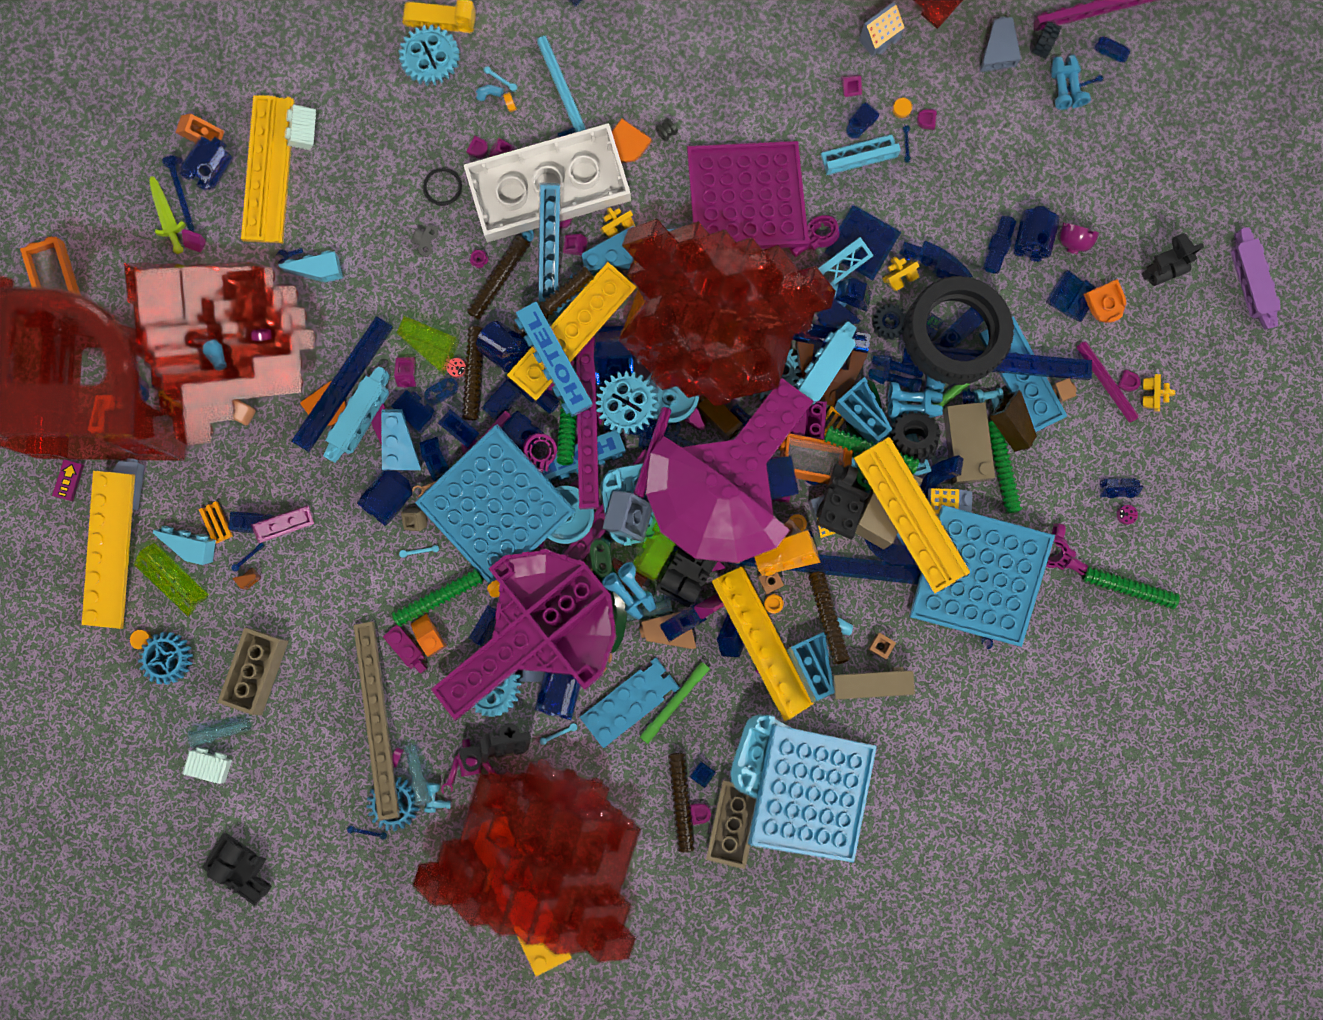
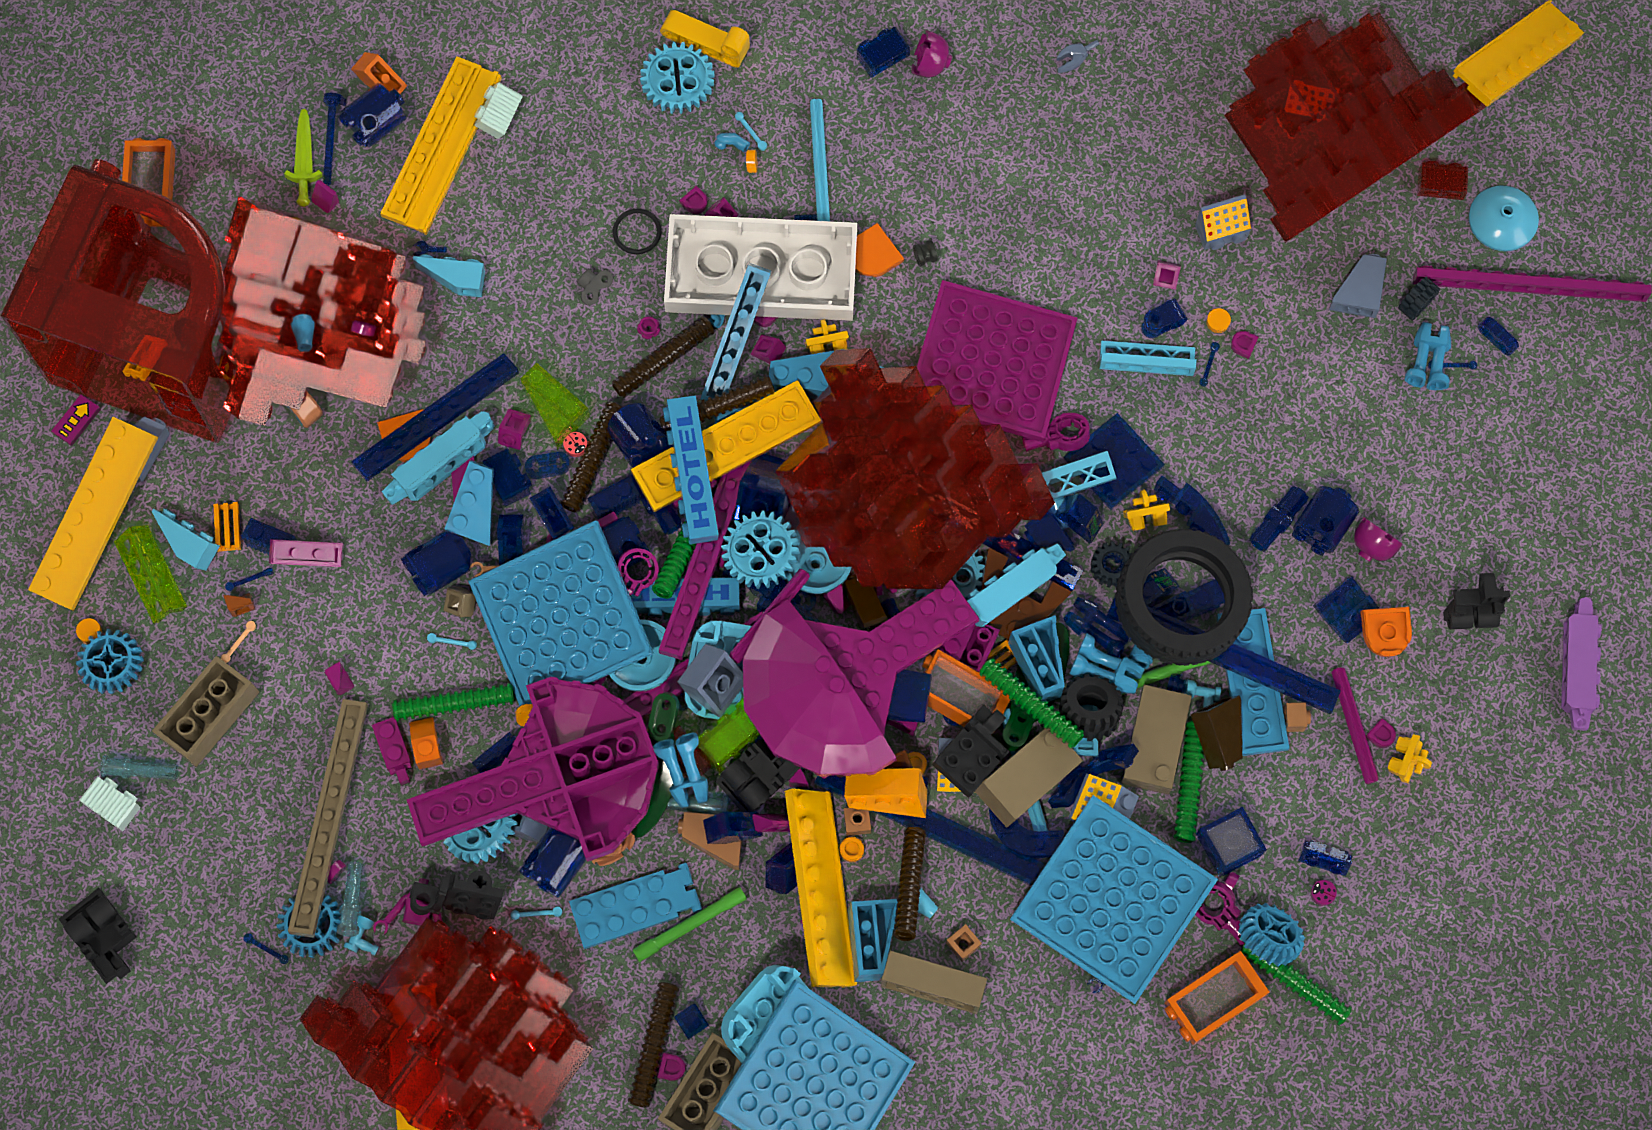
camera: 20 degrees right, 10 degrees down
(262, 592) = (250, 626): none -> light nougat hinge
(344, 610) = (339, 678): none -> magenta slope
(911, 515) = (1050, 793): yellow plate -> none
(1050, 502) = (1231, 842): none -> piece
(1078, 621) = (1215, 998): none -> window
(1104, 561) = (1271, 934): none -> dark azure gear

